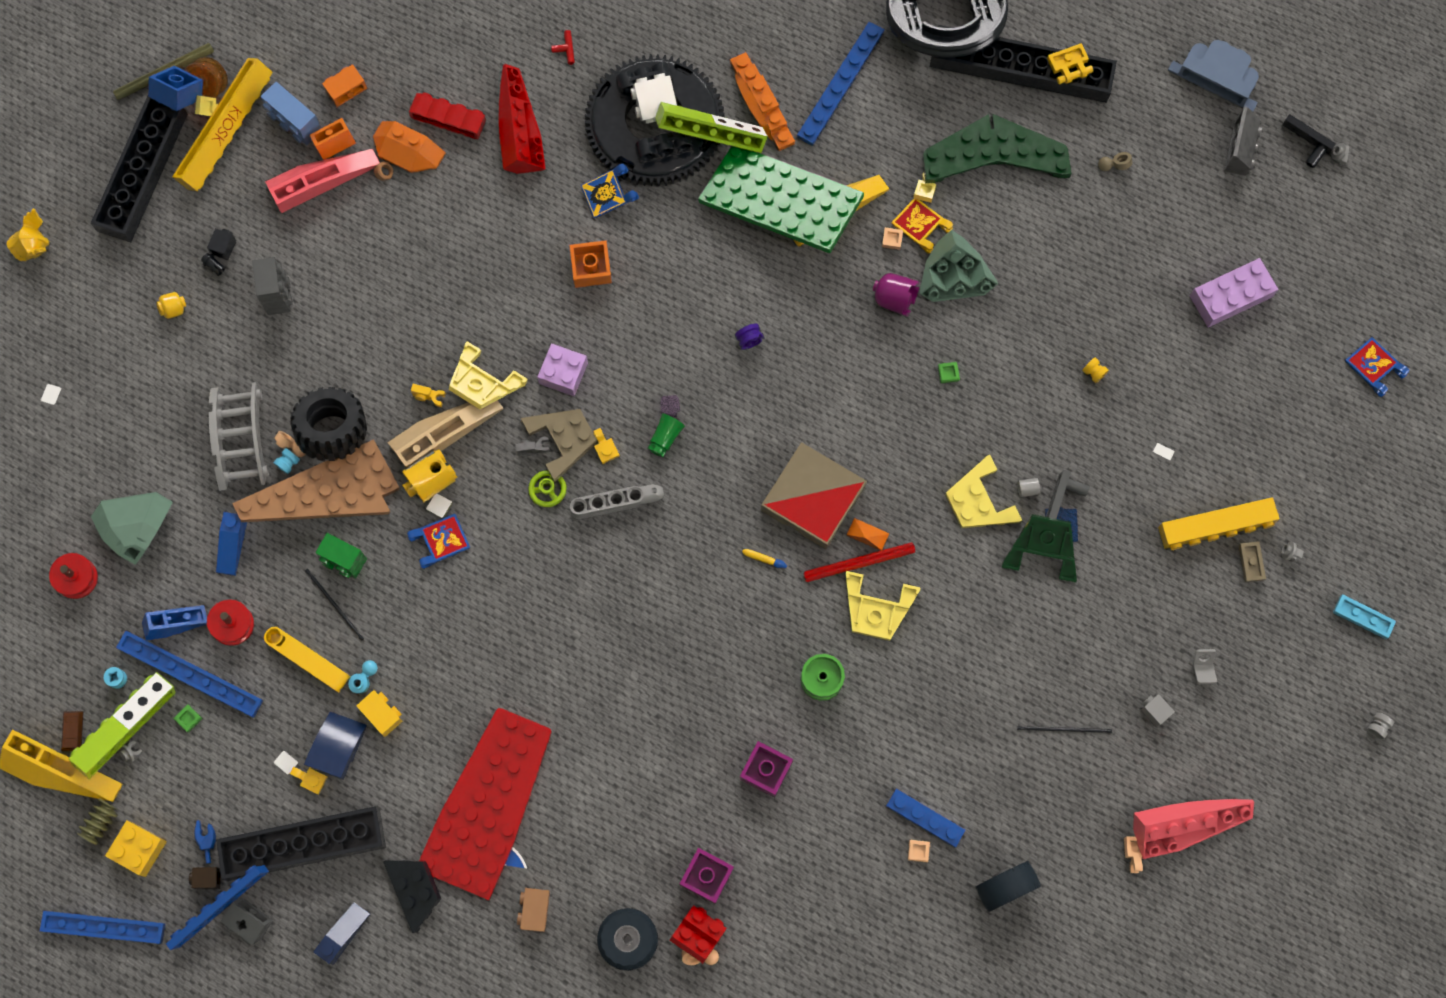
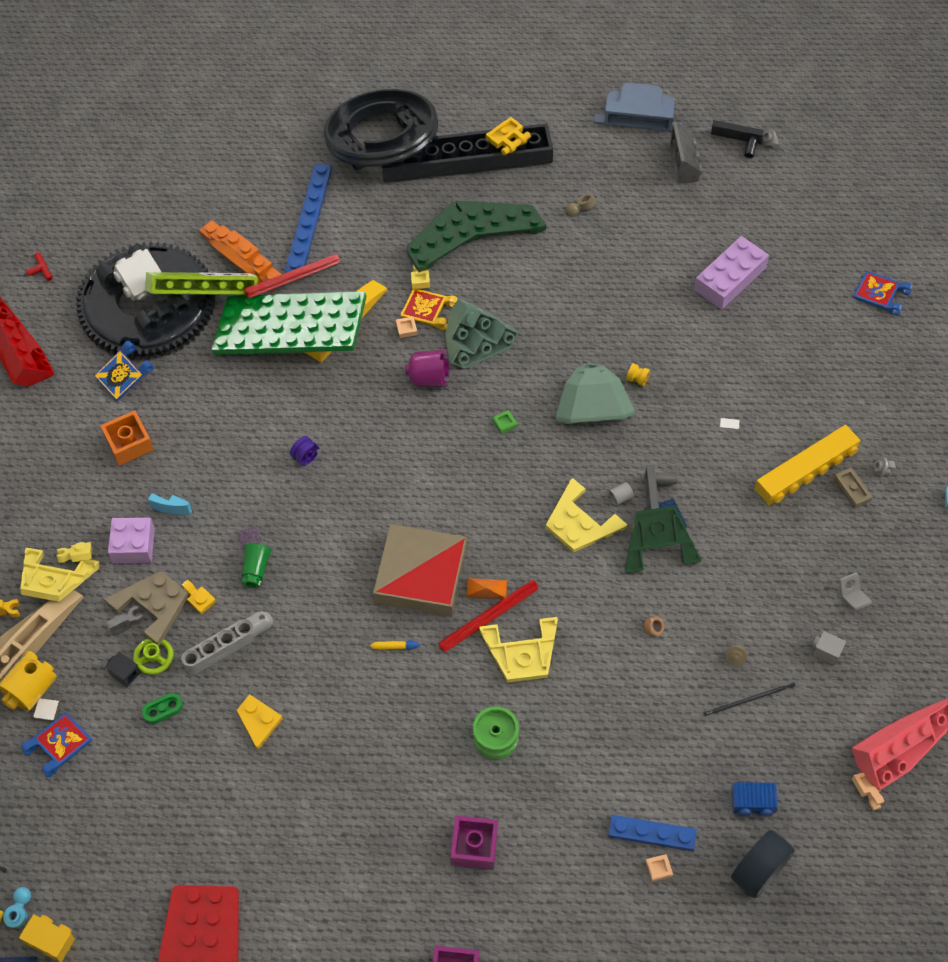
camera: 20 degrees left, 15 degrees down
(511, 363) = (77, 552): none -> light yellow plate
(516, 492) = (122, 669): none -> black brick
(539, 540) = (162, 708): none -> green plate
(611, 348) = (173, 506): none -> medium azure slope
(619, 584) = (258, 719): none -> yellow wing
(802, 144) = (291, 276): none -> red axle
(1001, 625) = (648, 626): none -> medium nougat piece
(1028, 822) = (754, 798): none -> blue brick
(1042, 380) = (593, 396): none -> sand green brick
(1069, 685) = (736, 655): none -> dark tan wheel

